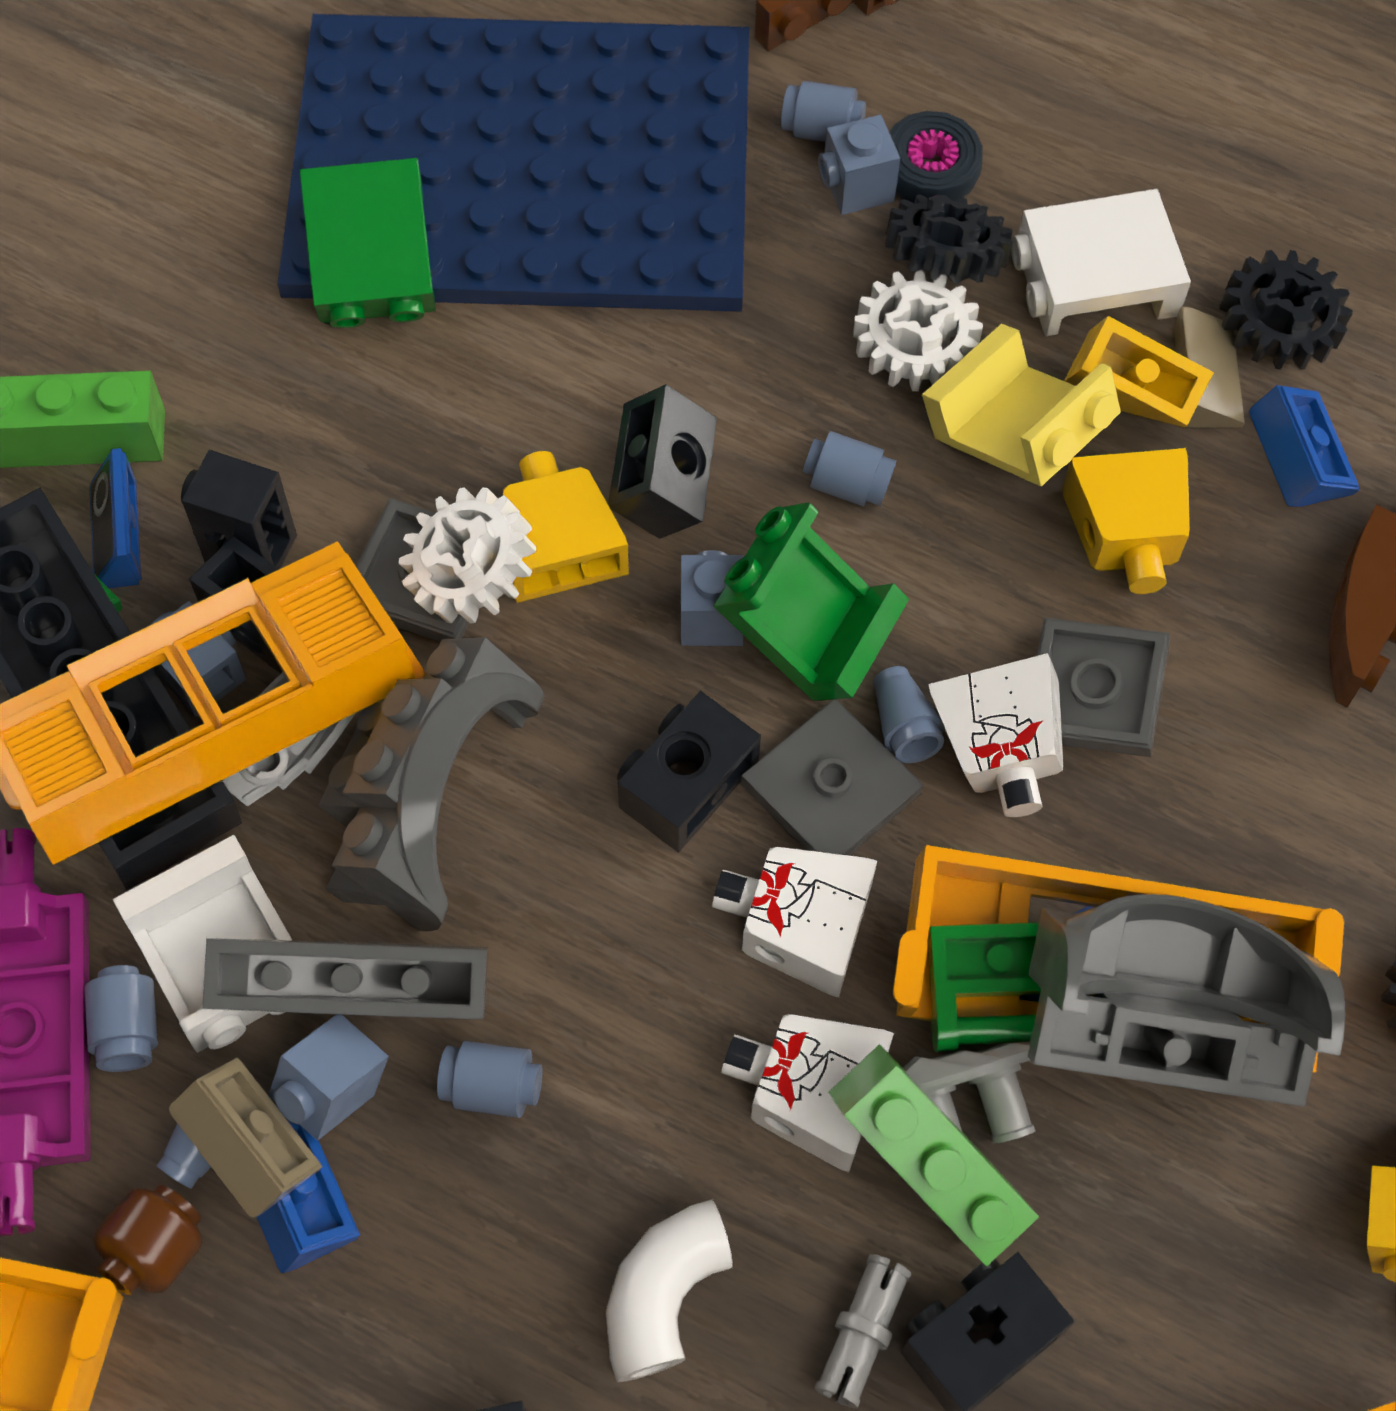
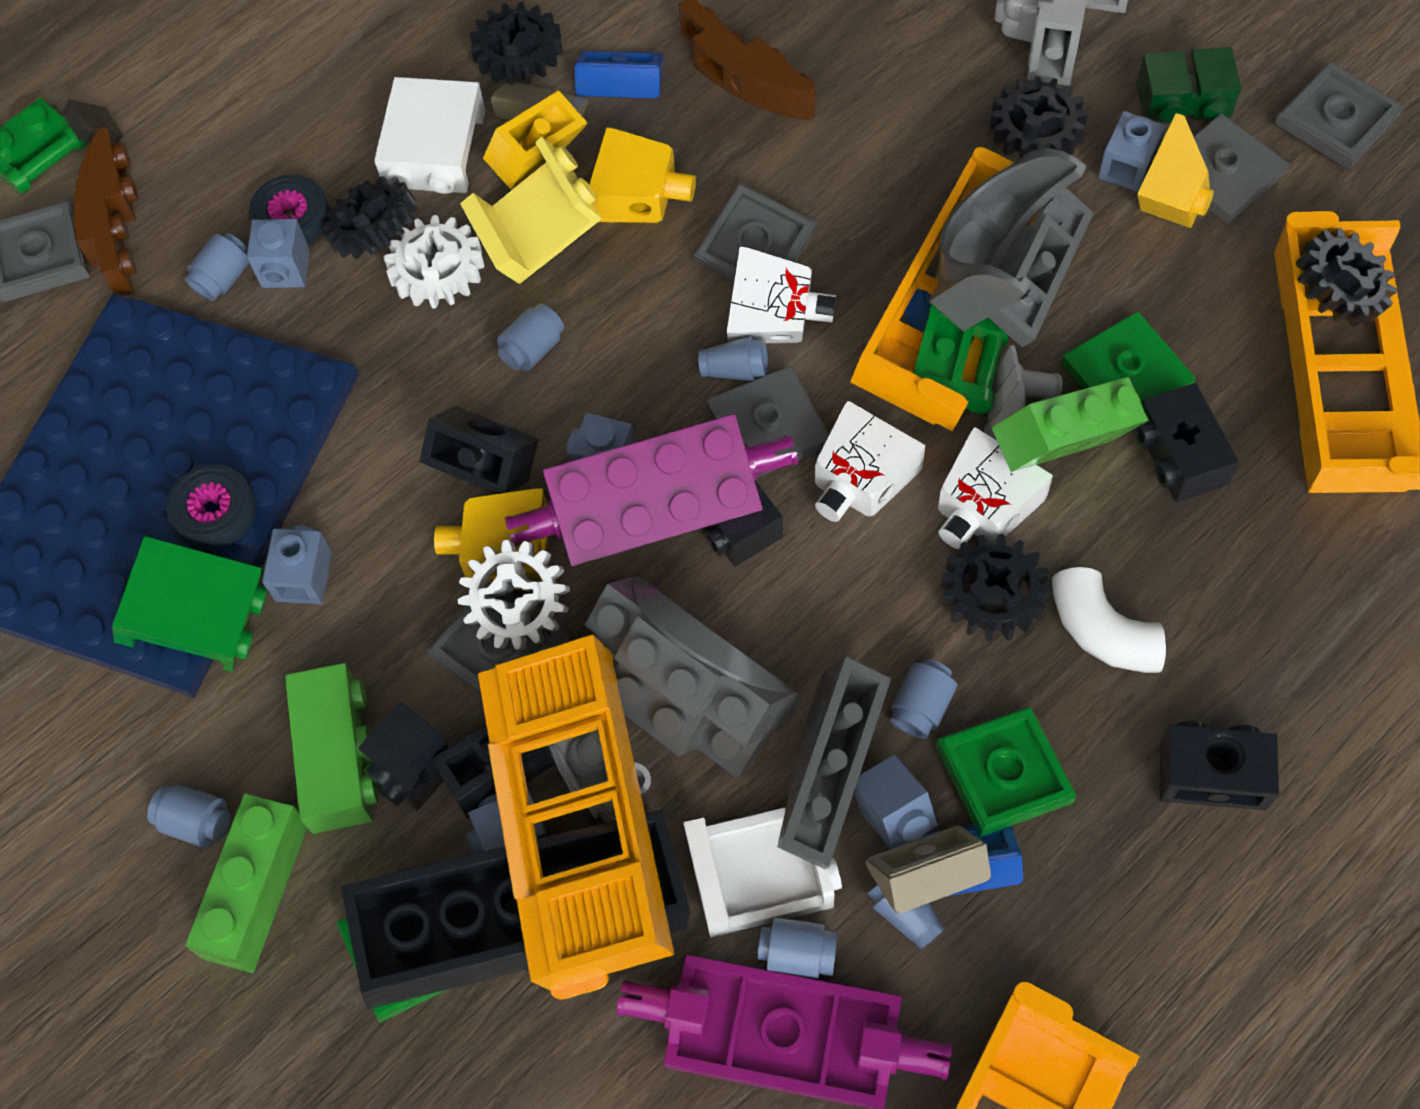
camera: 65 degrees left, 0 degrees up
(115, 522) = (339, 862): blue slope -> none
(133, 334) = (189, 815): none -> sand blue brick
(148, 1240) = (980, 964): reddish brown head -> none
(270, 424) = (325, 741): none -> bright green brick
(417, 1209) = (1005, 771): none -> green plate
(460, 332) = (297, 565): none -> sand blue brick
(486, 195) = (215, 485): none -> black bush
(651, 662) = (652, 490): none -> magenta plate
(696, 1148) = (993, 607): none -> black gear
(808, 606) = (642, 387): green panel -> none
(863, 1331) = (1160, 515): light grey pin -> none
(1092, 1233) = (1128, 351): none -> green plate

